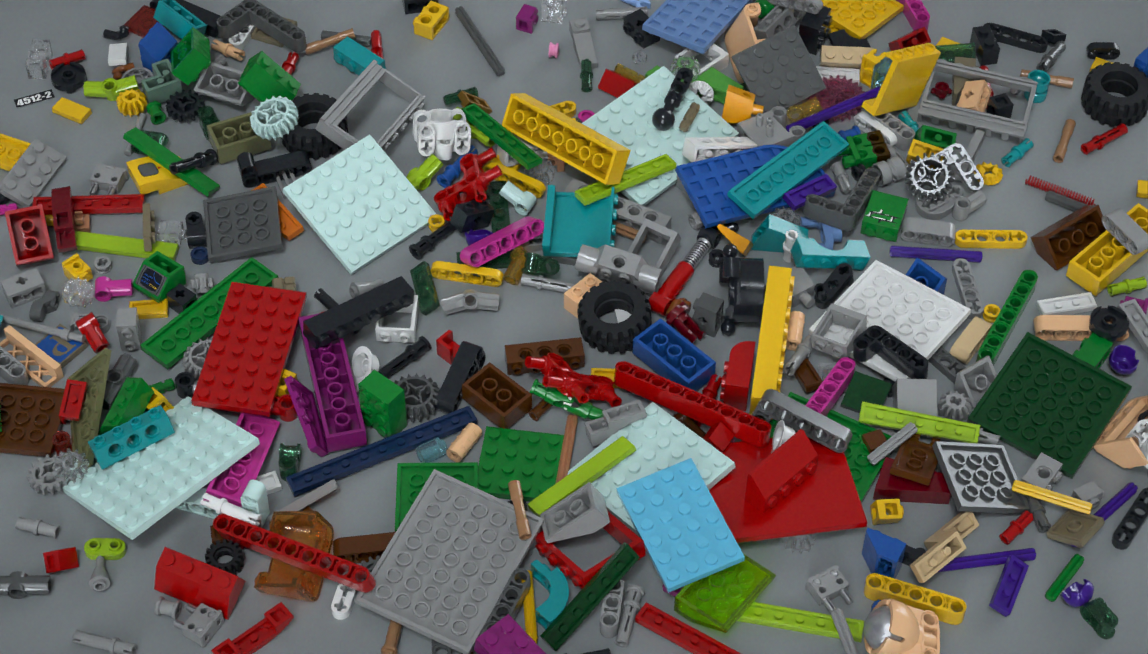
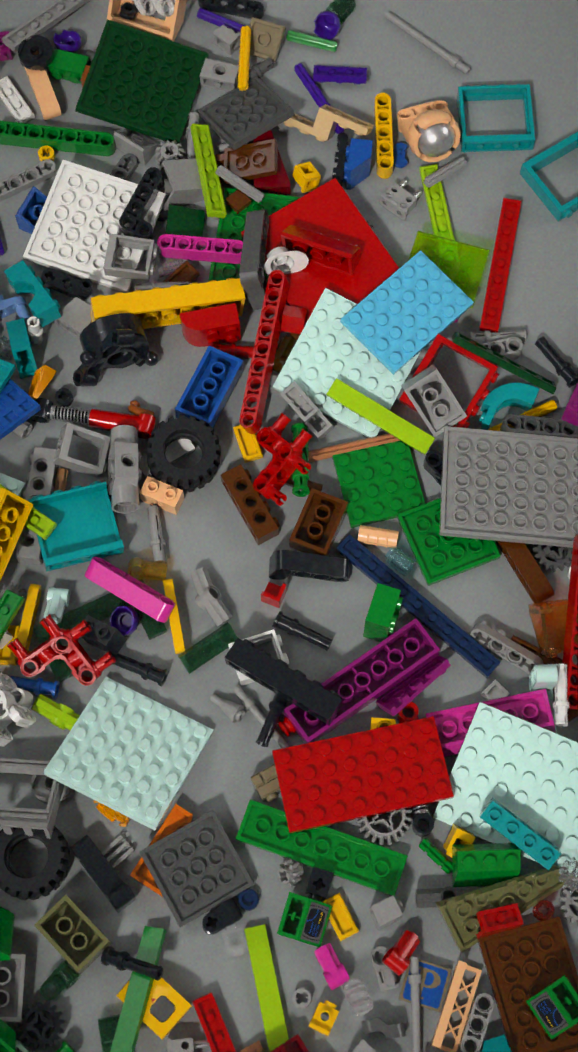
camera: 110 degrees left, 20 degrees up
(148, 227) = (239, 968): dark tan plate -> none
(273, 115) = (62, 889): light aqua gear -> none
(289, 459) = (463, 683): clear green piece -> none
(363, 364) = (333, 659): white piece -> none
(416, 392) = (337, 615): dark grey gear -> none
(436, 219) = (115, 668): yellow bush -> none
(521, 519) = (460, 438): medium nougat piece -> none
(536, 265) = (143, 545): clear green piece -> none
(683, 323) = (161, 400): dark red piece -> none
(708, 313) = (148, 374): dark grey brick -> none
(970, 340) = (88, 158): tan beam -> none
(1016, 527) = (278, 82): red axle -> none

